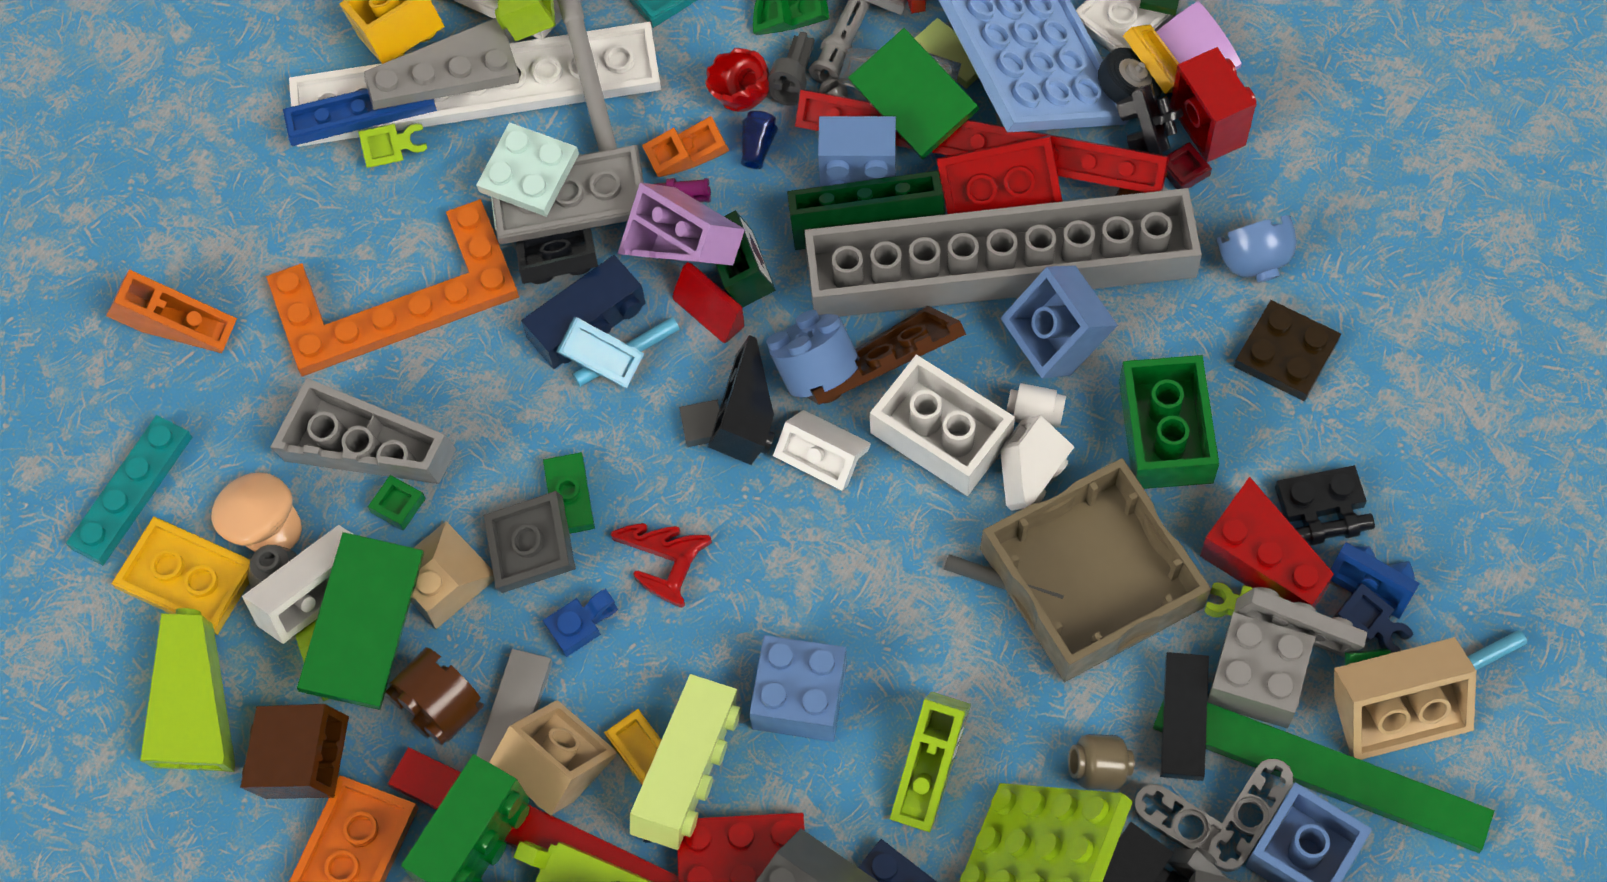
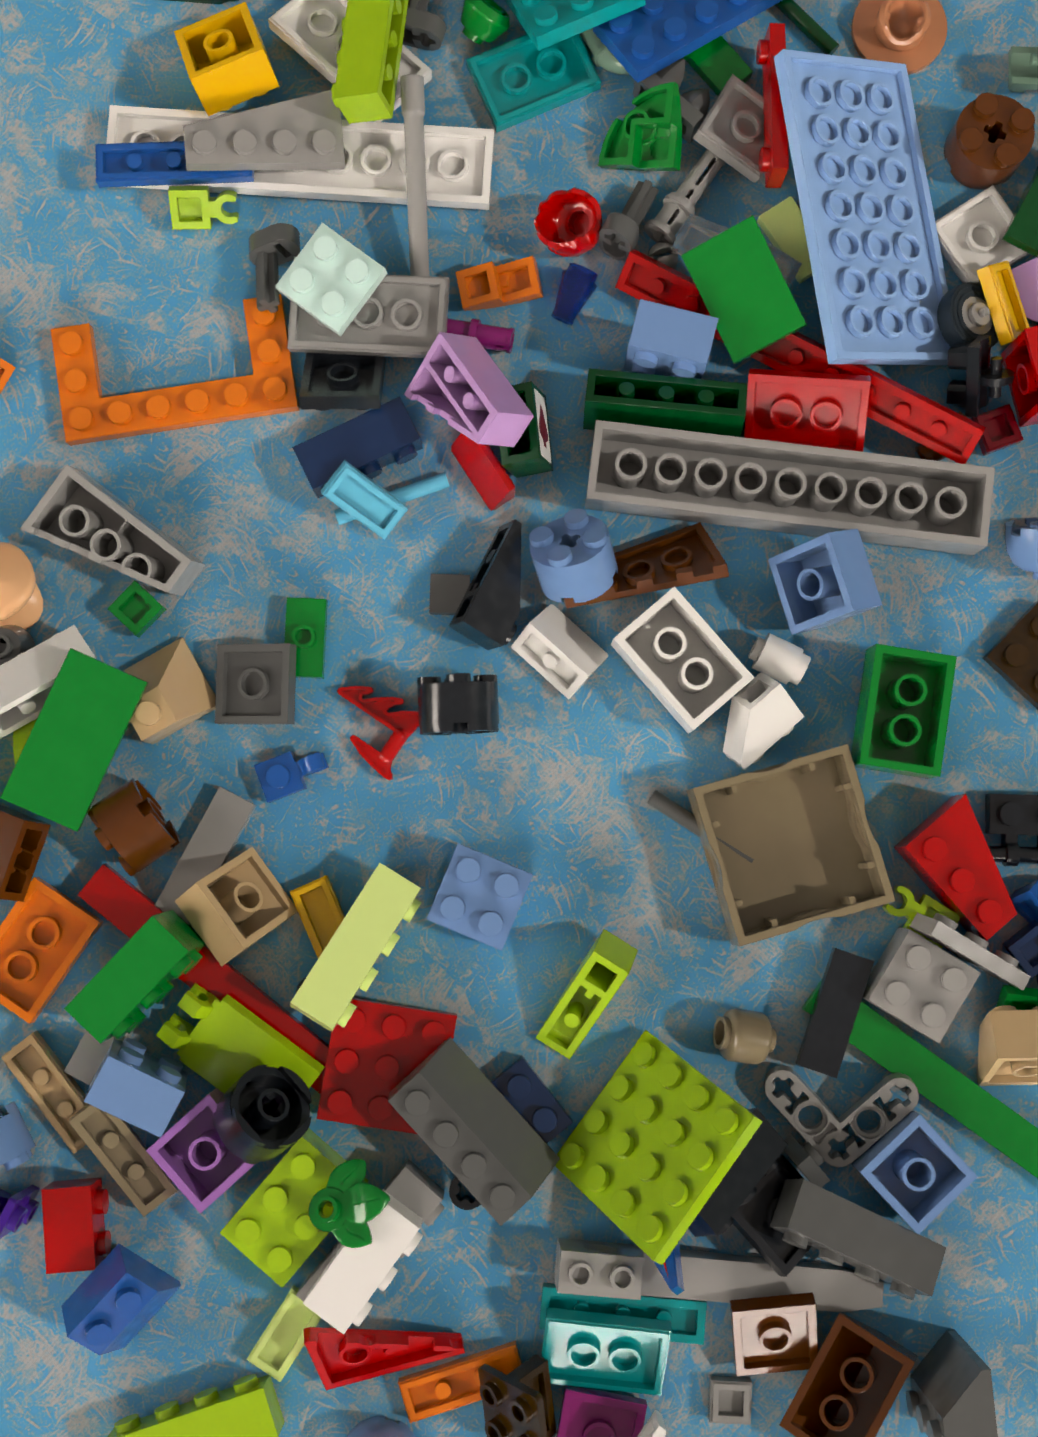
camera: 10 degrees right, 20 degrees up
(462, 167) = (267, 251): none -> dark grey piece
(734, 511) = (458, 704): none -> black brick

